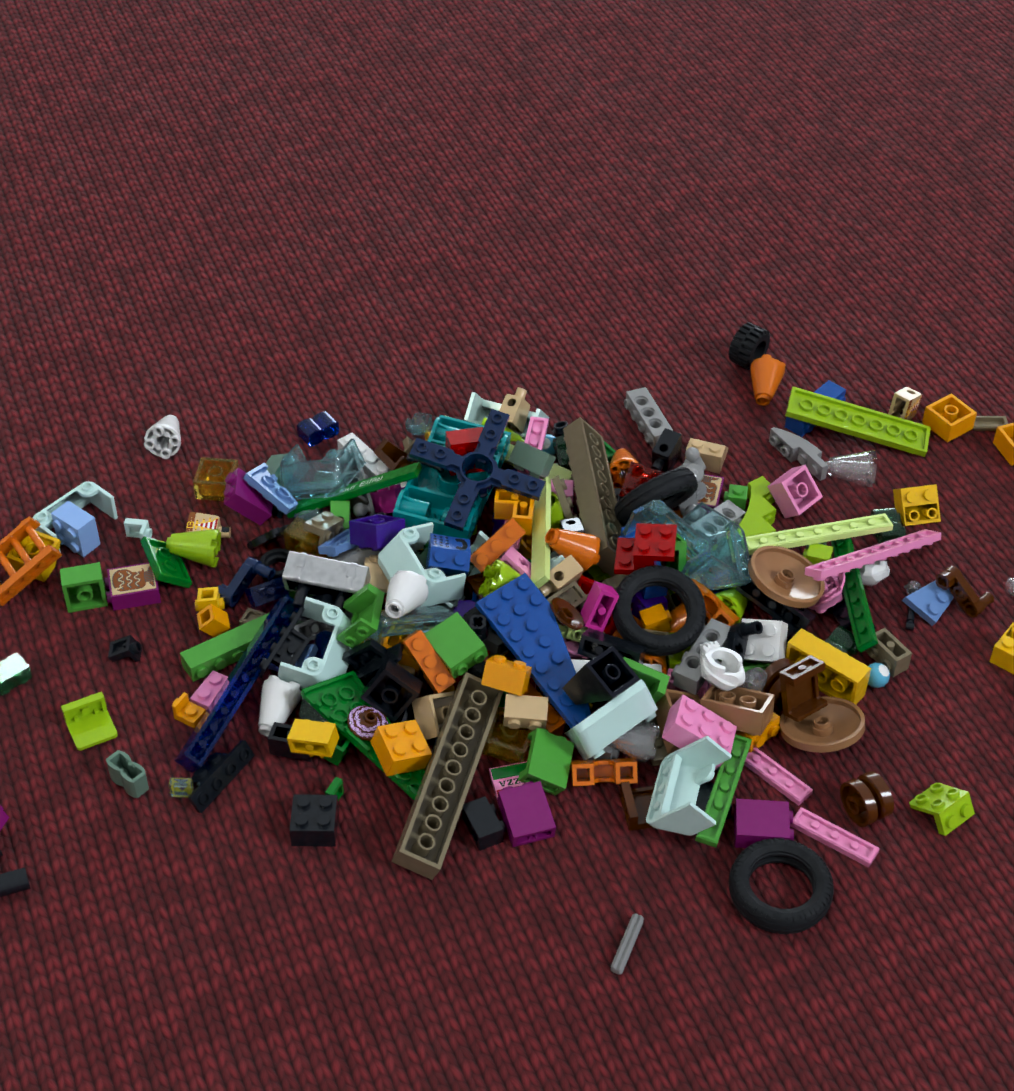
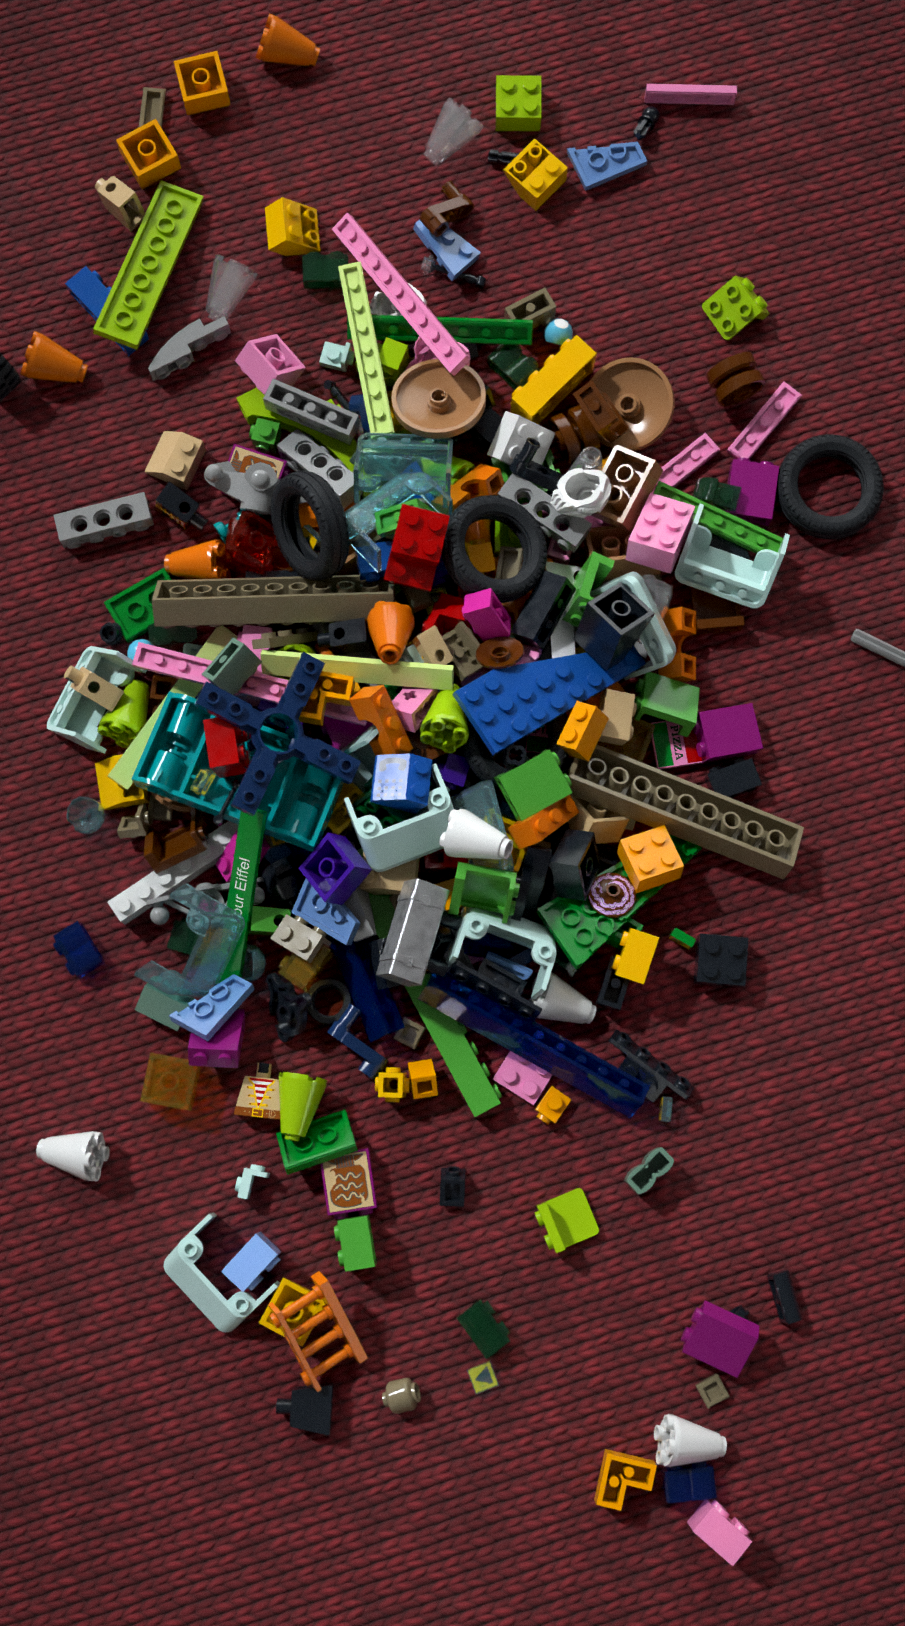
camera: 85 degrees left, 35 degrees up
(750, 789) = (717, 494): none -> clear green brick
(759, 505) = (311, 411): none -> light grey brick

